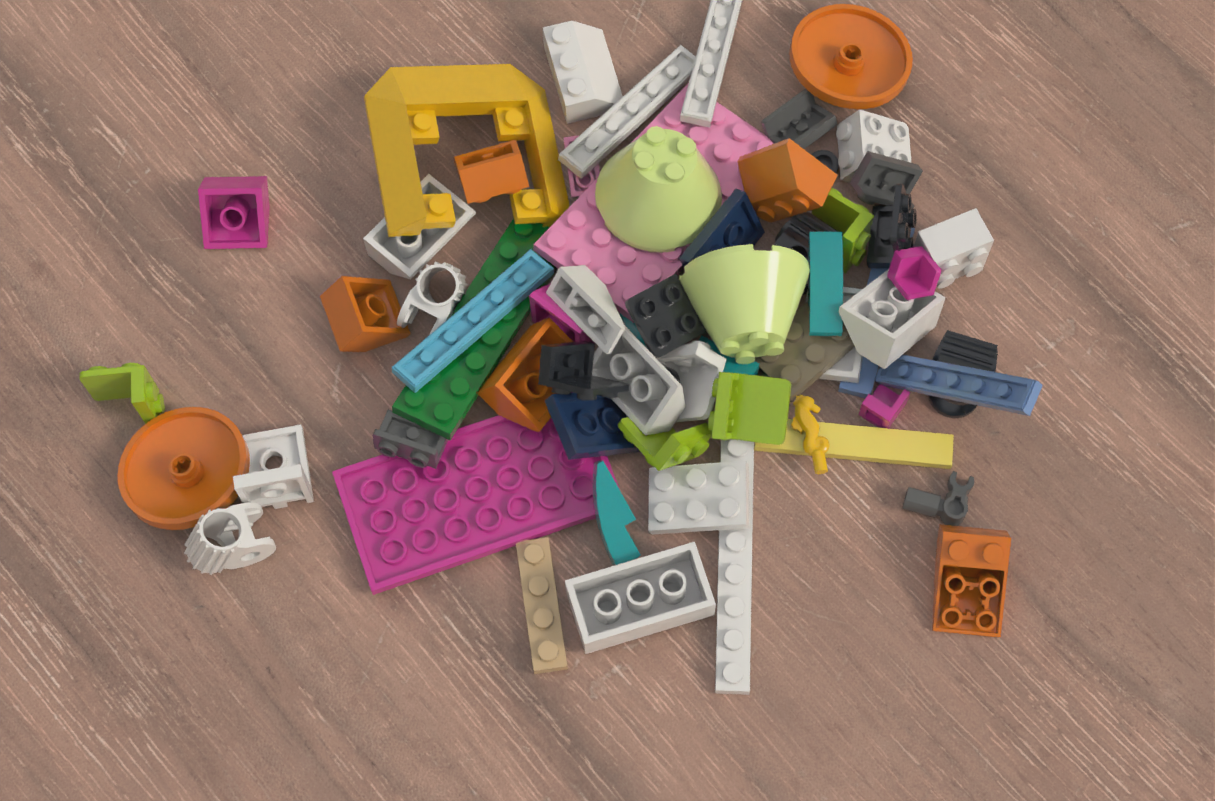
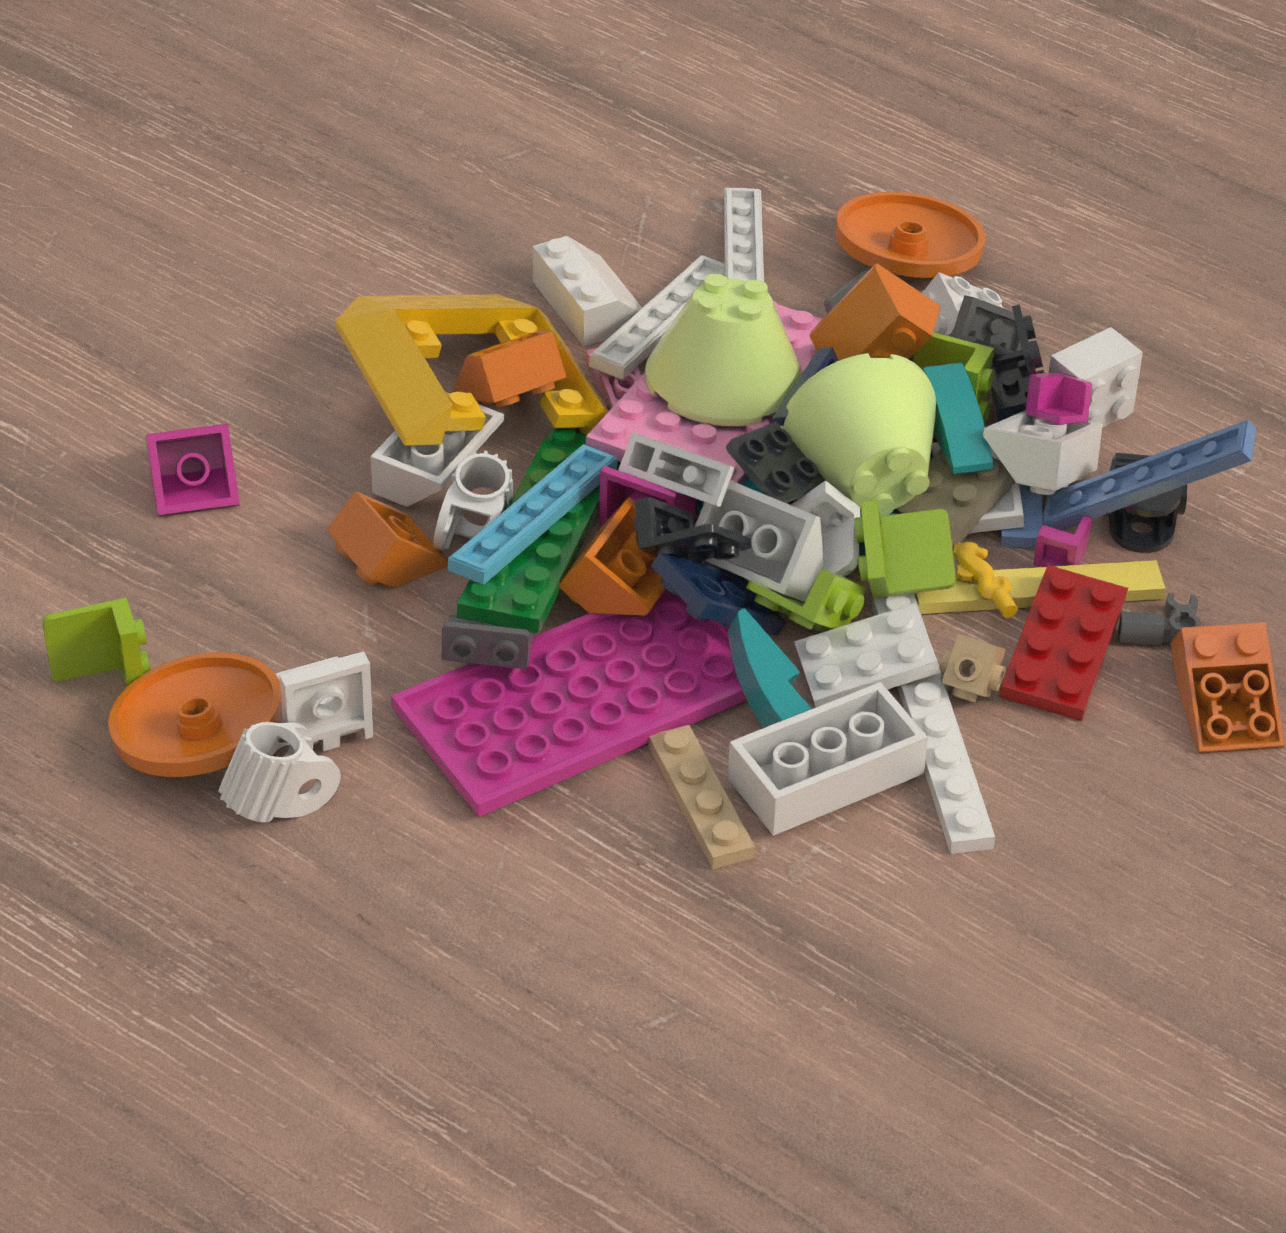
camera: 15 degrees left, 25 degrees down
(776, 526) = (988, 668): none -> tan brick
(856, 507) = (1063, 642): none -> red plate

